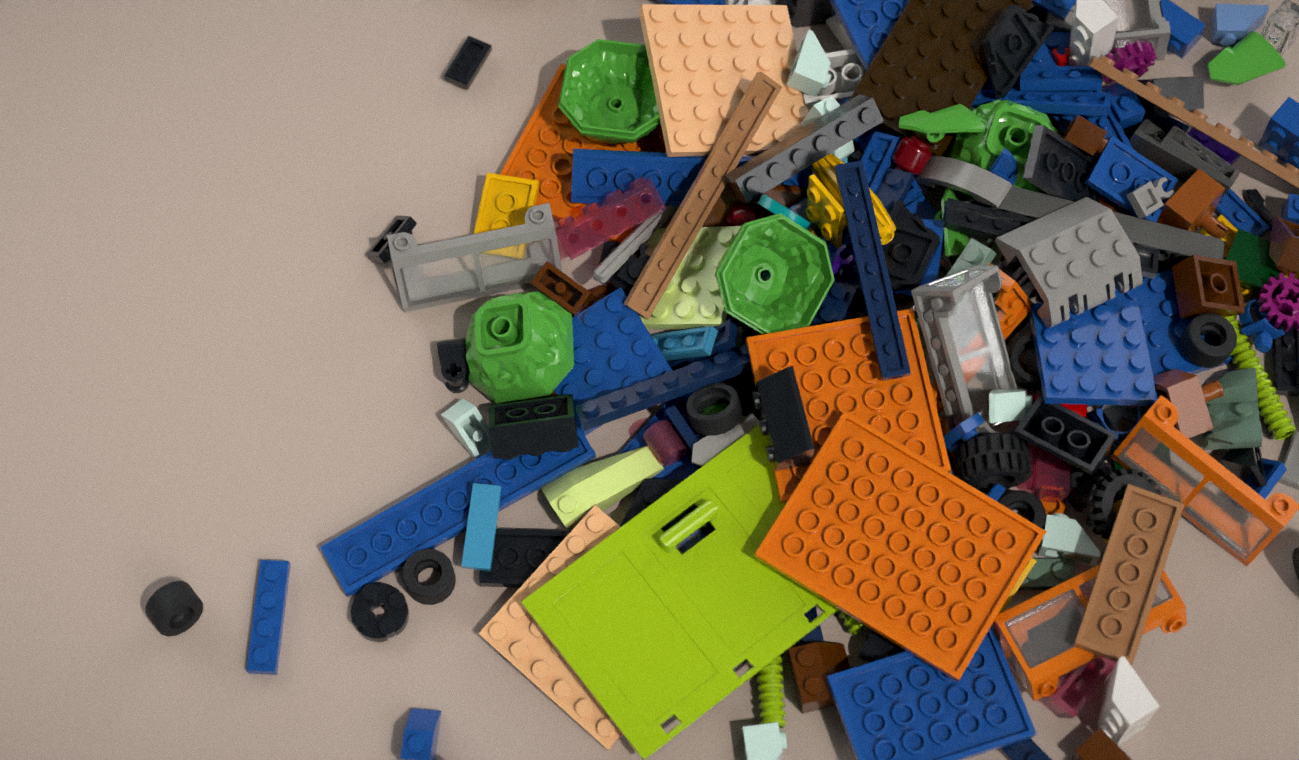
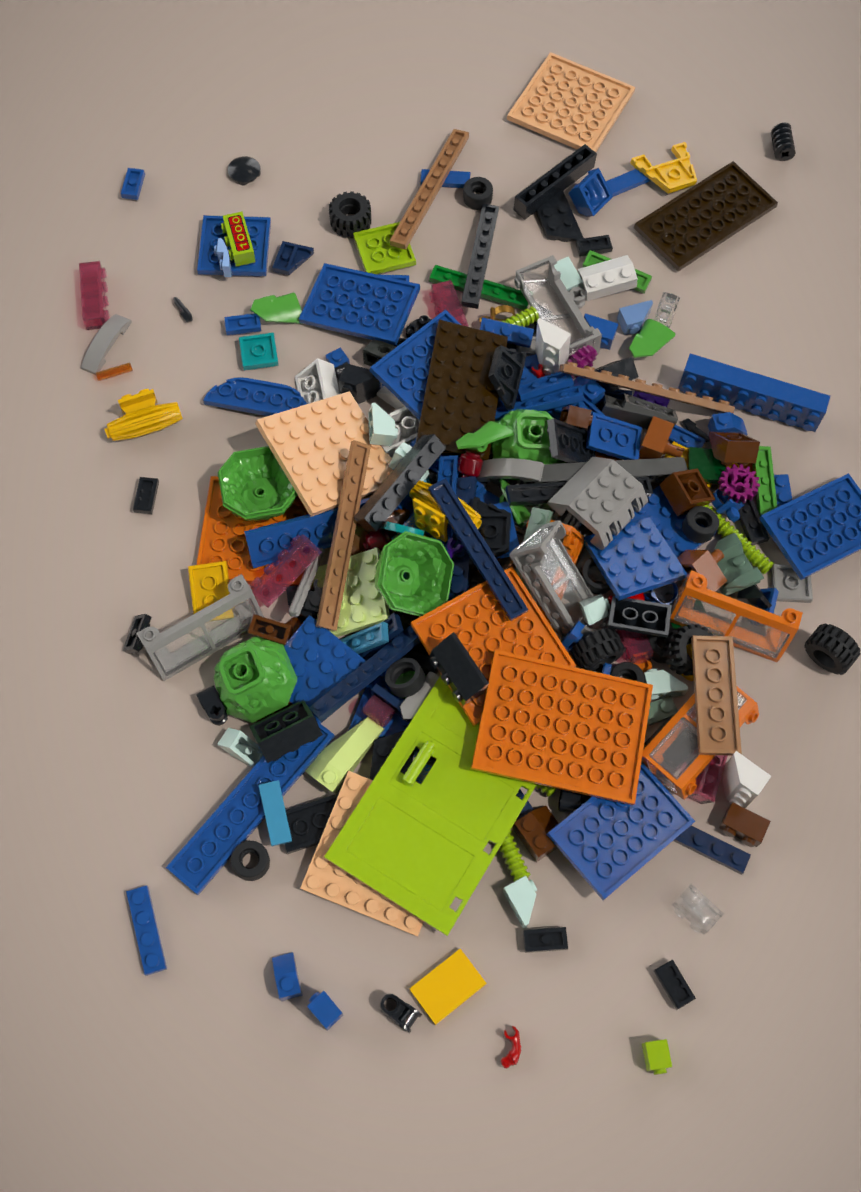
camera: 25 degrees left, 0 degrees up
(174, 608) = (76, 950): black tyre -> none
(386, 626) = (233, 906): black plate -> none
(1005, 166) = (535, 453): blue tile -> none
(1148, 197) = (629, 444): light grey plate -> none

